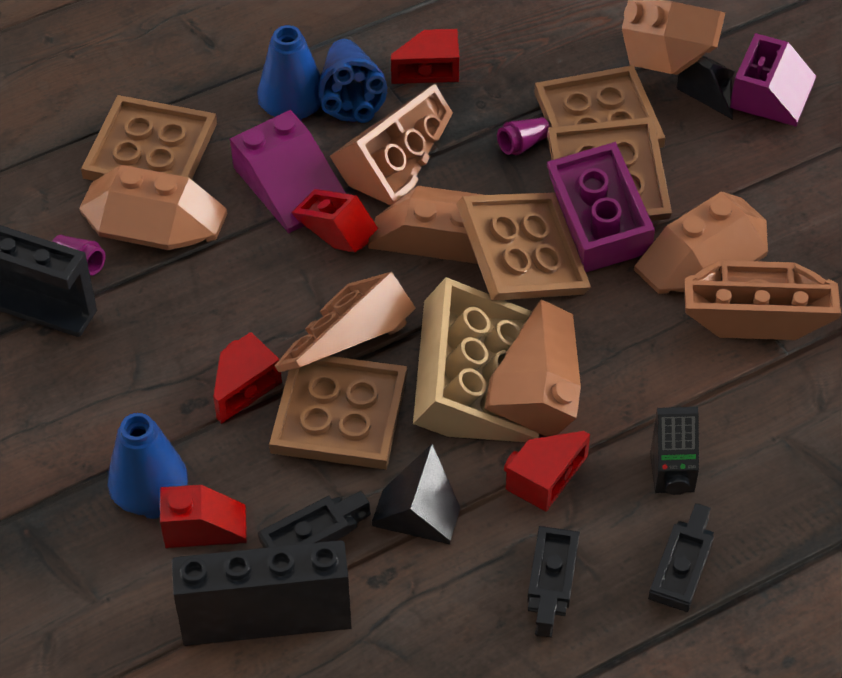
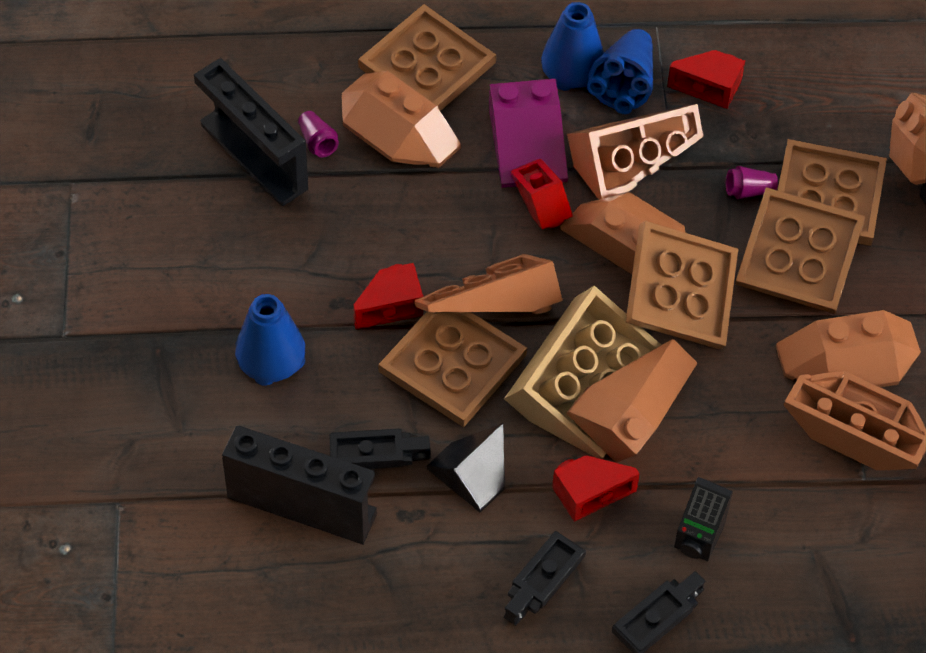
camera: 25 degrees right, 5 degrees up
(200, 517) = (292, 400): red slope -> none
(601, 206) = (769, 278): magenta slope -> none

